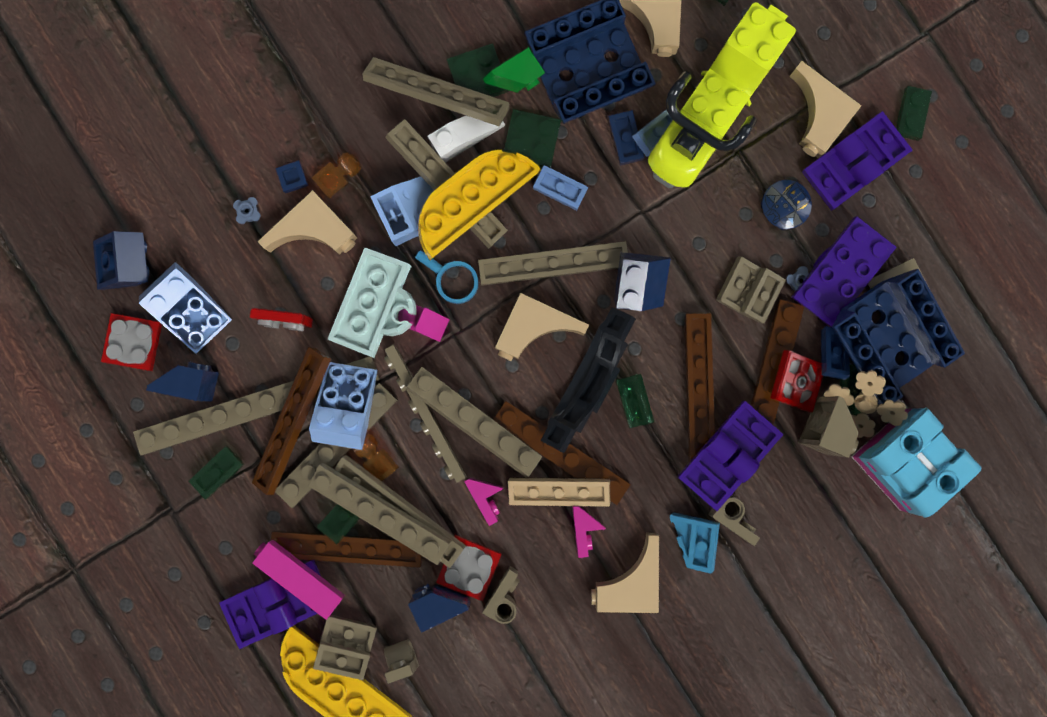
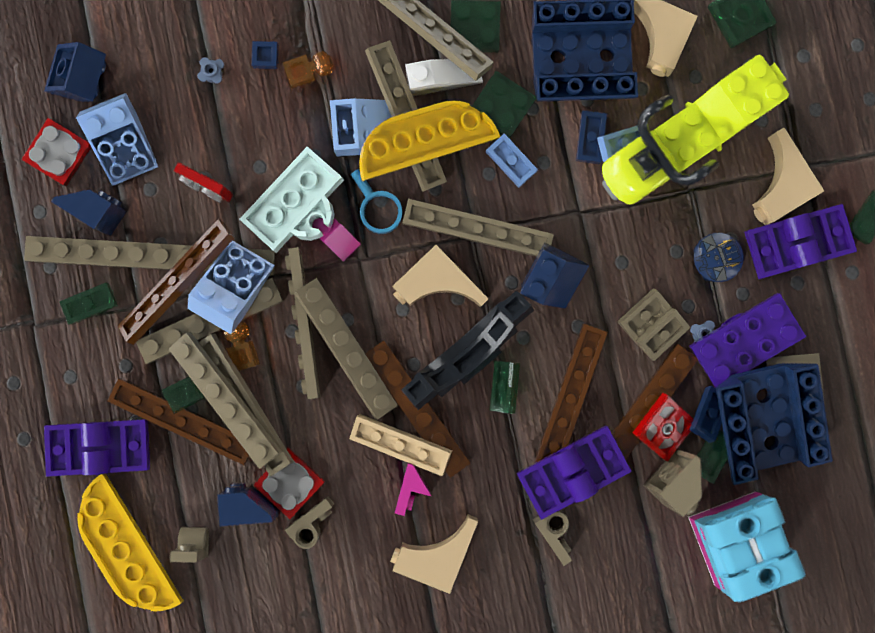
camera: 15 degrees right, 0 degrees up
(297, 578) = (125, 431): dark pink brick -> none
(310, 221) = (267, 103): tan arch -> none
(345, 647) = (145, 512): dark tan slope -> none
(480, 492) = (327, 416): dark pink slope -> none
(516, 73) = (511, 37): green slope -> none
(697, 540) = (512, 540): dark azure wing -> none
(867, 403) = (722, 472): tan plant -> none

